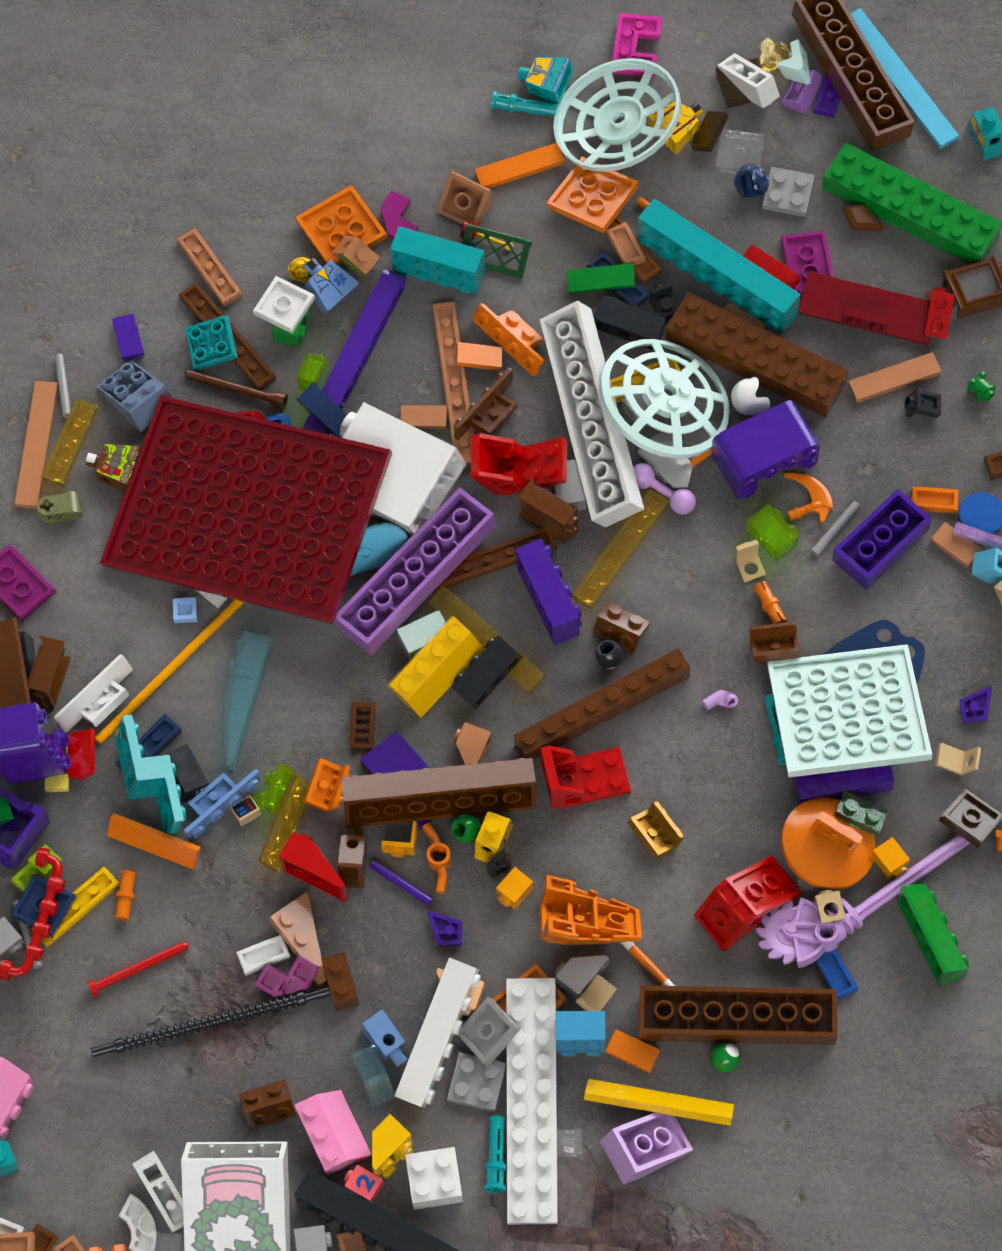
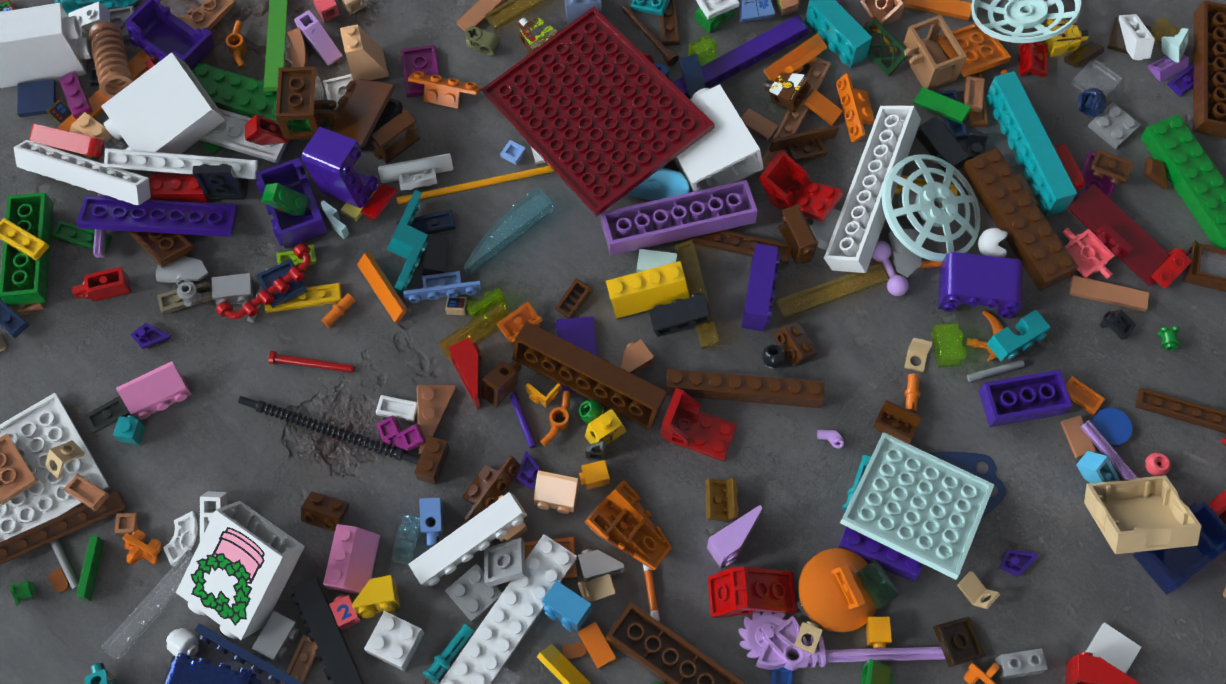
camera: 30 degrees right, 0 degrees up
(54, 808) = (333, 219): none -> light aqua slope
(60, 589) = (443, 91): none -> orange bracket
(415, 320) = (797, 58): none -> orange bracket
(416, 971) = (489, 486): none -> reddish brown bracket
(430, 360) = (788, 90): none -> reddish brown torso
(489, 930) = (556, 492): none -> light nougat slope
(552, 233) = (928, 58): none -> medium nougat piece
(614, 1071) = (574, 650): none -> dark orange piece
(661, 169) = (1033, 59): none -> red bracket
(692, 870) = (729, 541): none -> lavender slope
(814, 241) = (1111, 167): none -> reddish brown bracket
(830, 494) = (1007, 344): none -> teal arch
(848, 347) = (1088, 253): none -> coral plate

